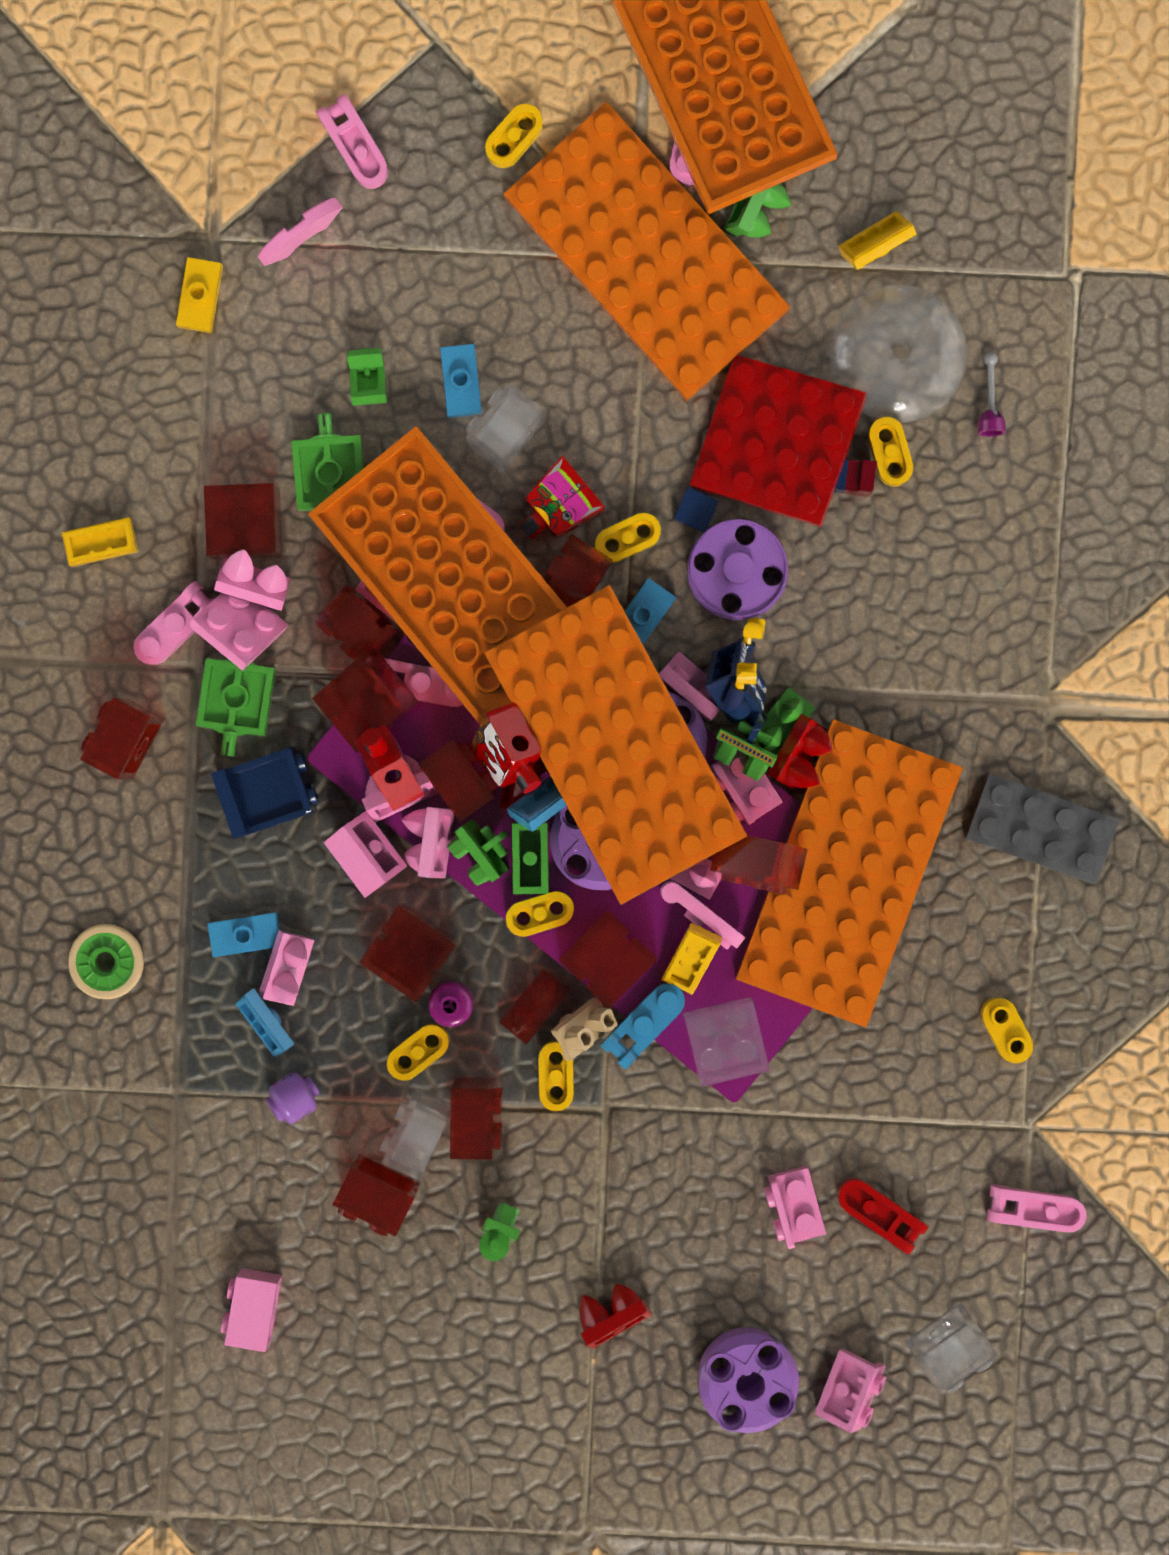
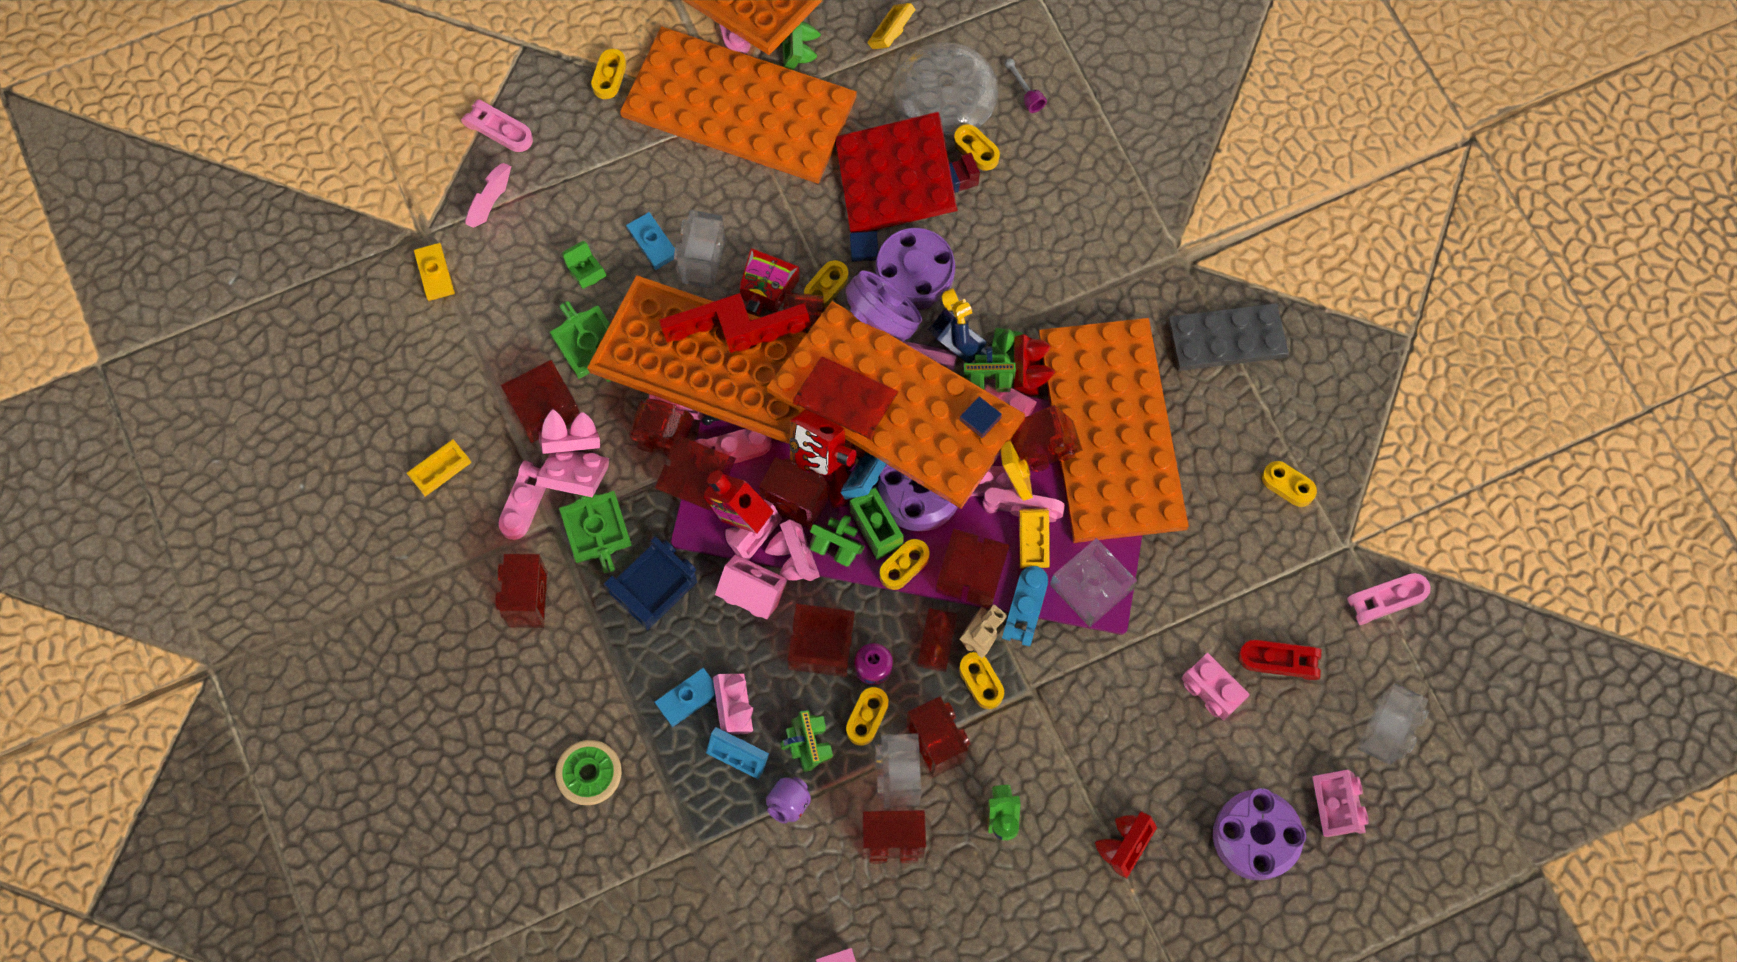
camera: 30 degrees left, 20 degrees down
(340, 1061) = (803, 743): none -> bright green hips
(489, 555) = (735, 323): none -> red bracket
(560, 716) = (845, 397): none -> clear red piece
(666, 614) = (882, 305): none -> medium lavender piece
(693, 819) = (980, 417): none -> dark blue tile
(706, 888) = (1017, 471): none -> yellow plate

